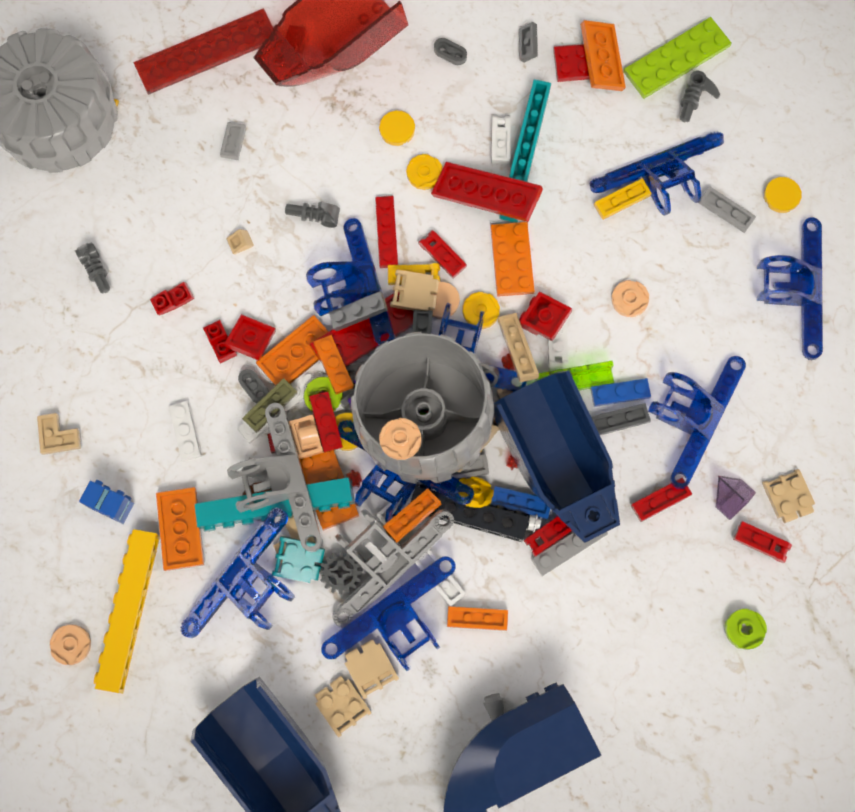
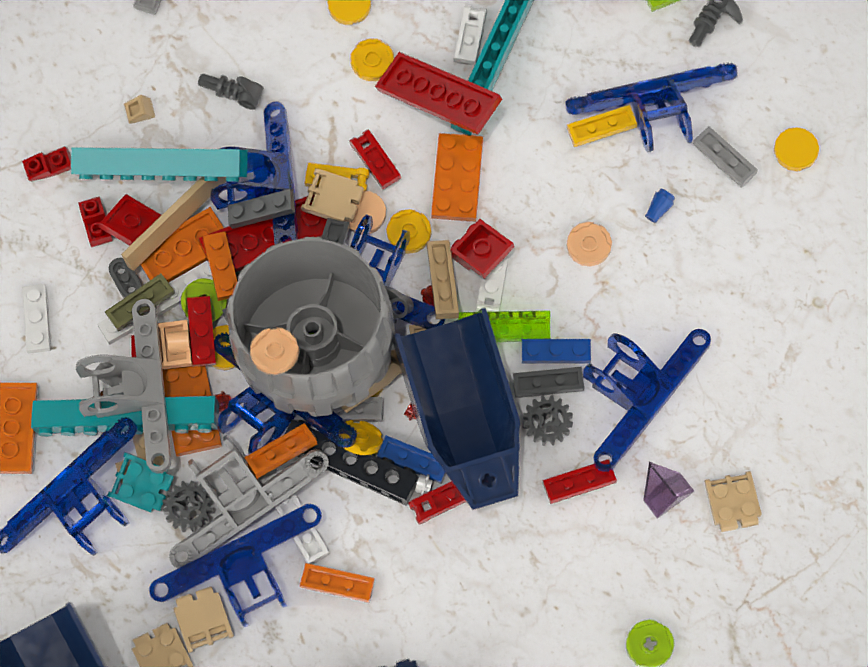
camera: 10 degrees right, 5 degrees down
(266, 284) = (159, 162): none -> teal brick
(285, 328) = (169, 222): none -> tan tile
(386, 231) = (314, 123): red plate -> none
(562, 552) = (456, 522): light grey plate -> none
(633, 455) = (540, 414): none -> dark grey gear
(682, 257) = (660, 204): none -> blue cone
(762, 541) = (689, 548): red plate -> none
(803, 288) = (800, 260): clear blue piece -> none

